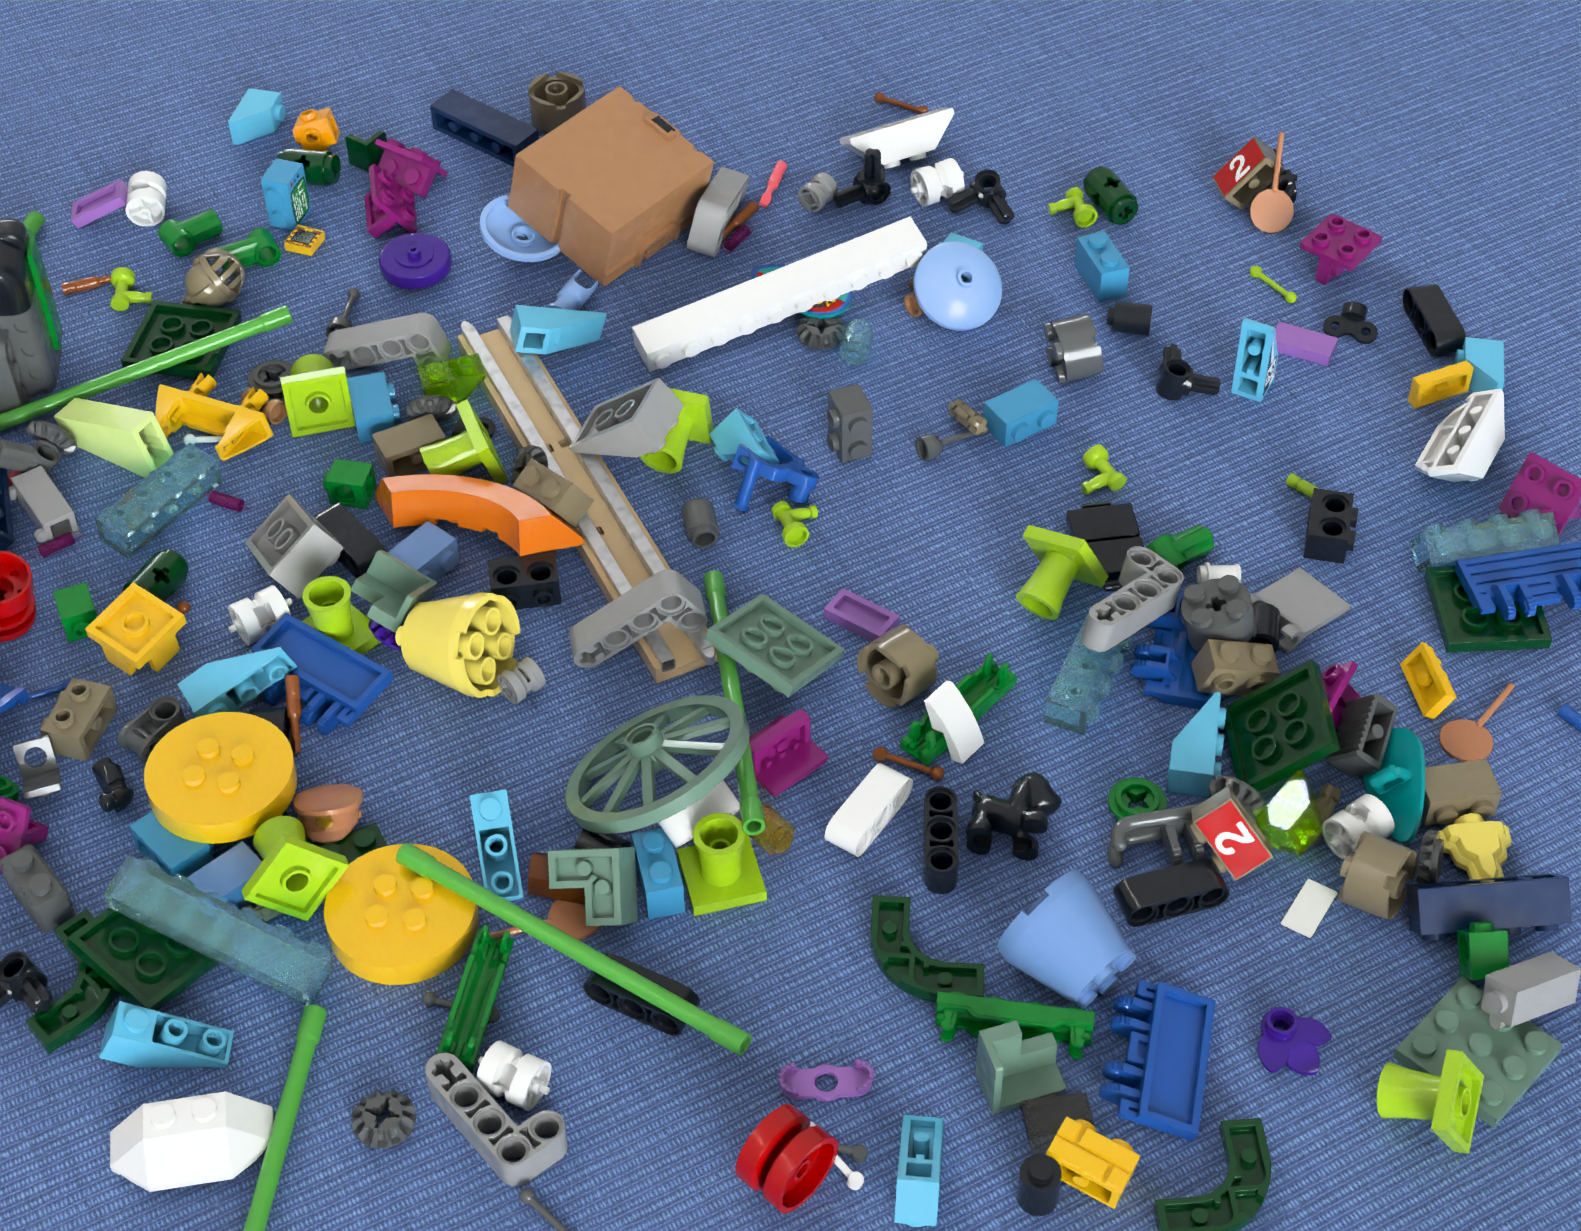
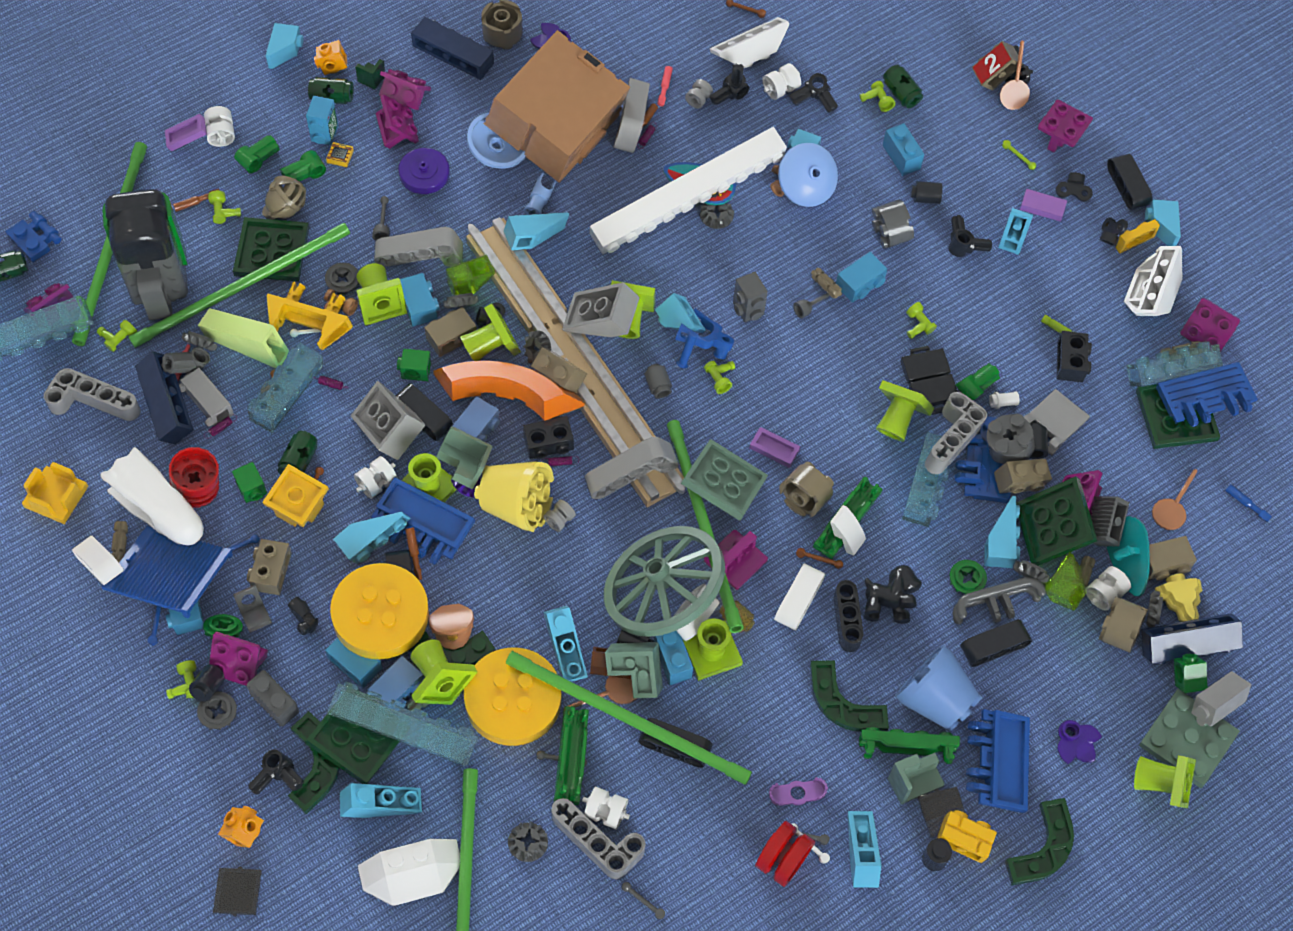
camera: 10 degrees left, 15 degrees up
(151, 726) = (321, 576): dark grey piece -> none
(538, 615) = (559, 461): none -> magenta piece
(856, 342) = (743, 223): clear light blue brick -> none
(1231, 834) = (1032, 603): brick -> none
(1309, 908) = (1080, 644): white sticker -> none
(1398, 378) = (1115, 228): none -> black piece
(1428, 680) = (1144, 473): yellow plate -> none

